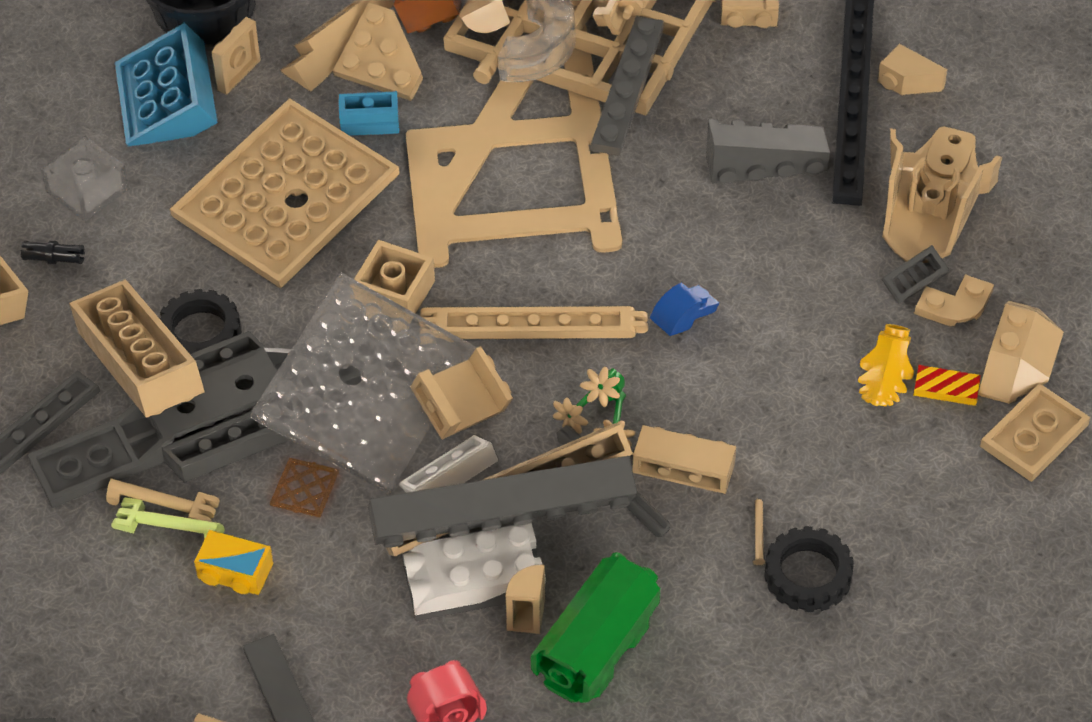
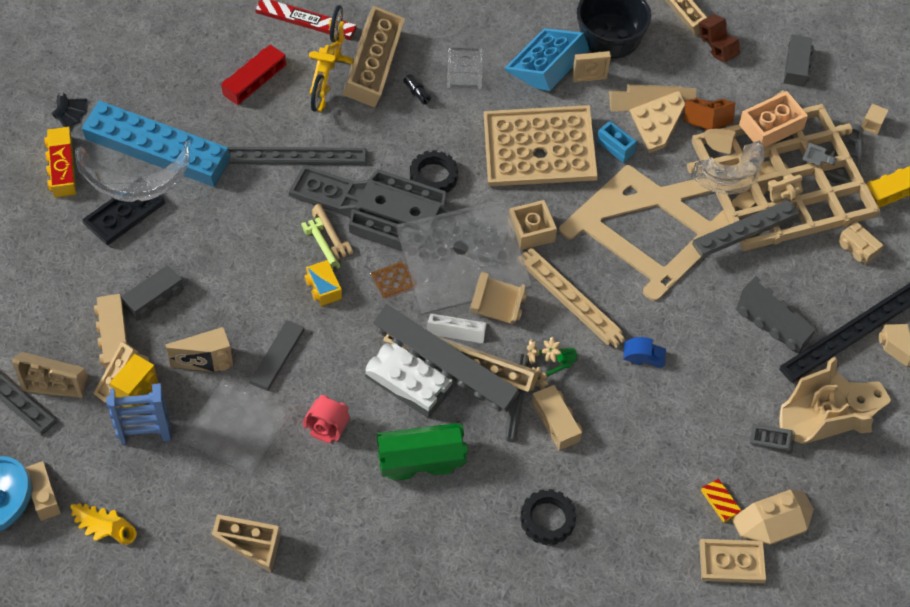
camera: 45 degrees right, 5 degrees up
(137, 348) = (387, 157): tan brick -> none
(526, 600) = (410, 409): tan brick -> none
(759, 533) = (551, 479): tan piece -> none
(886, 367) = (703, 465): yellow plant -> none
(952, 309) = (777, 473): tan plate -> none

